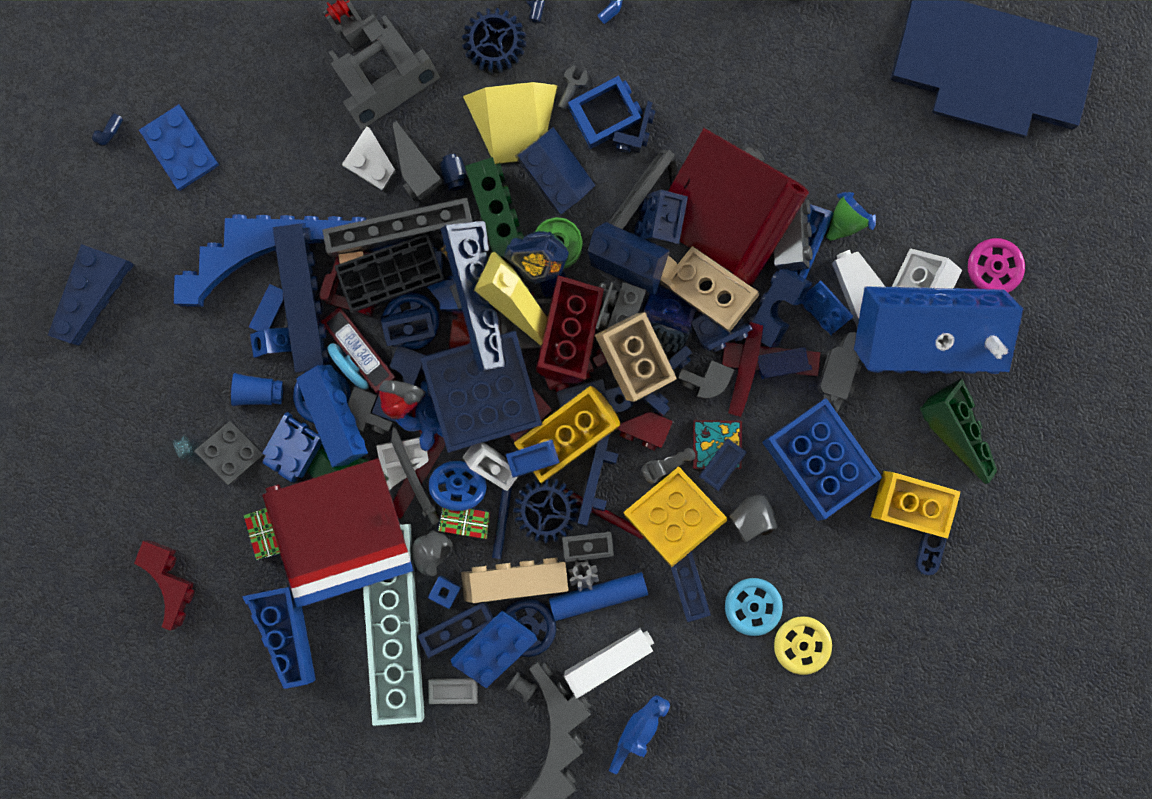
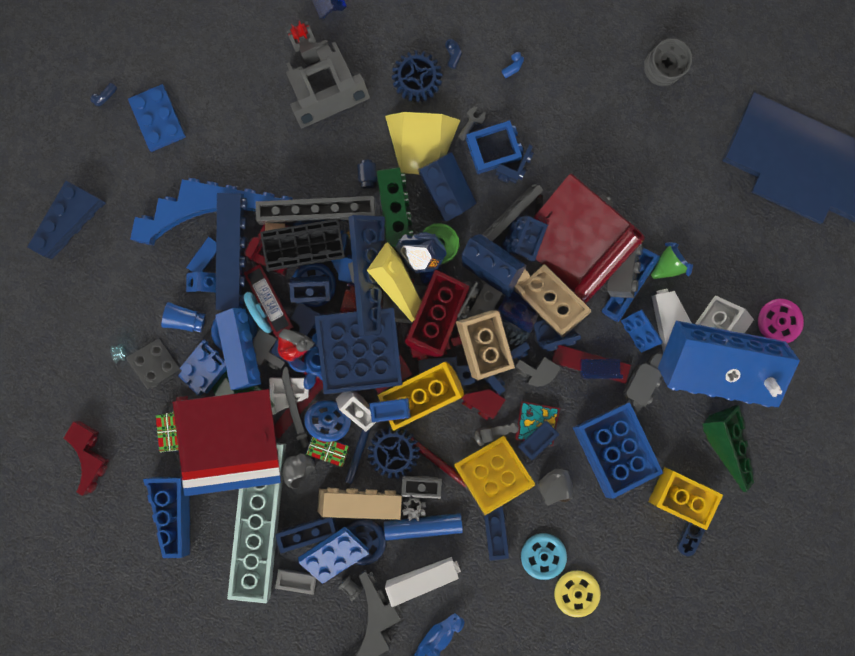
camera: 10 degrees right, 0 degrees up
(370, 161) = (303, 154): white wing -> none
(420, 177) = (337, 167): dark grey slope -> none
(441, 599) = (298, 507): blue piece -> none
(589, 501) = (429, 451): dark blue hinge -> none
(746, 370) = (570, 369): dark red sticker -> none
(785, 287) = (592, 335): dark blue arch -> none

